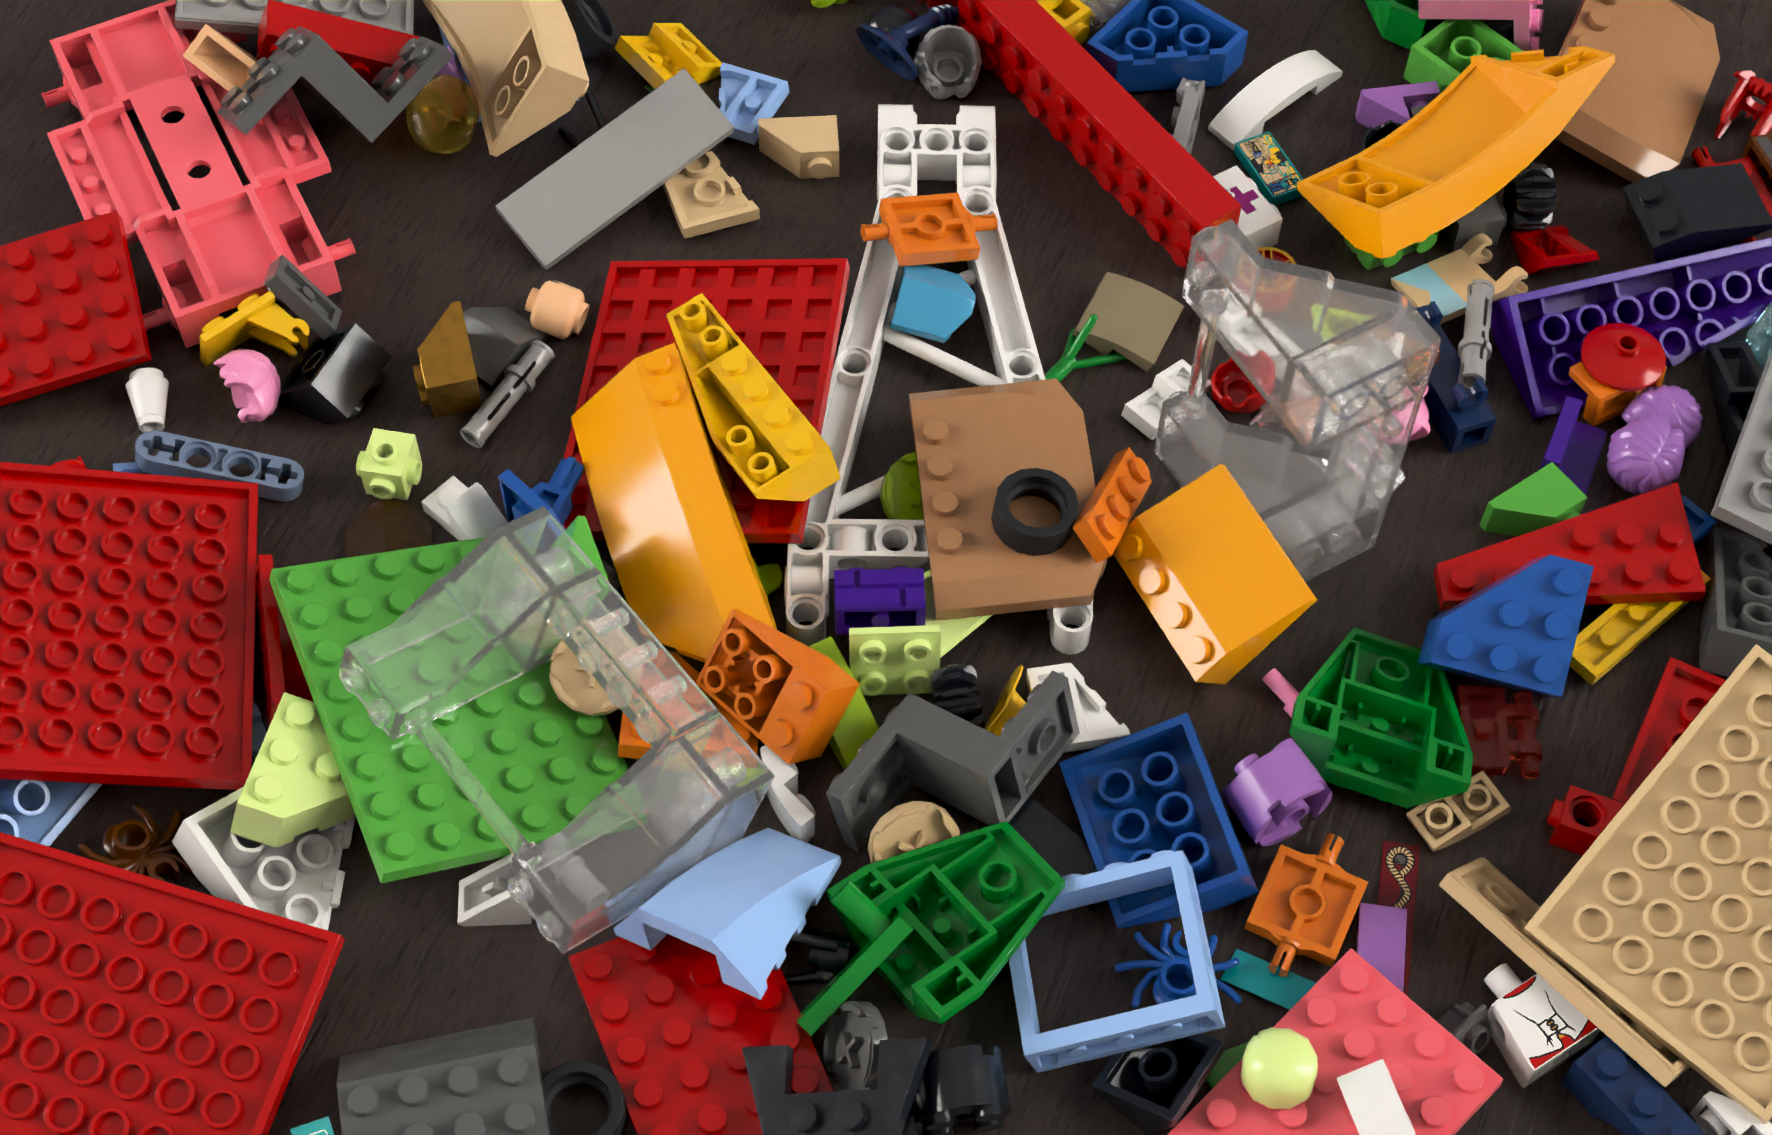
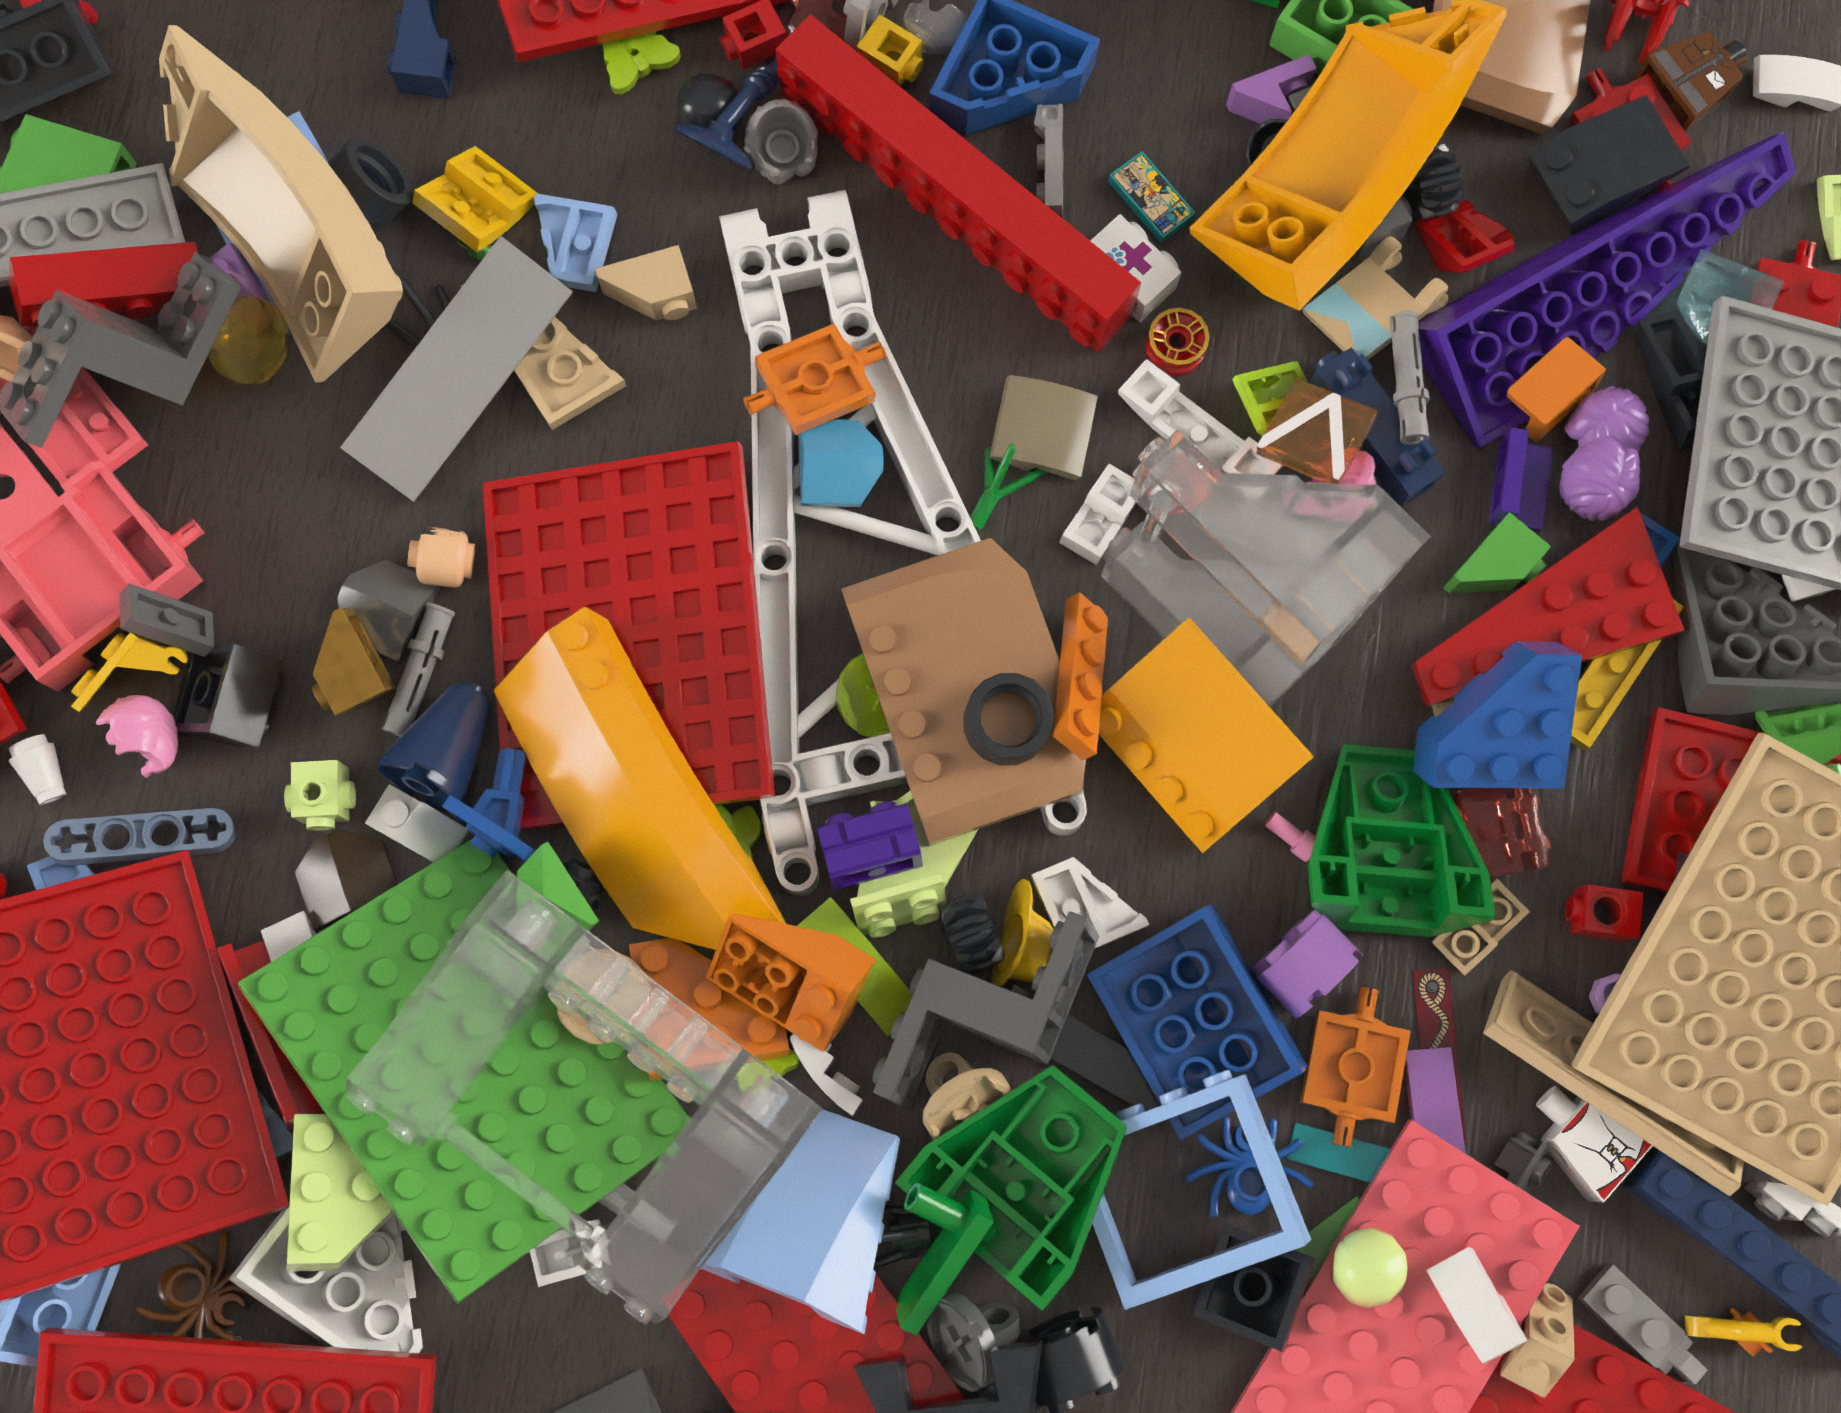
camera: 15 degrees left, 20 degrees up
(509, 442) = (440, 746): none -> dark blue cone
(748, 411) = (677, 665): yellow wedge -> none
(1272, 93) = (1136, 102): white slope -> none
(1623, 357) = (1549, 380): red dish -> none

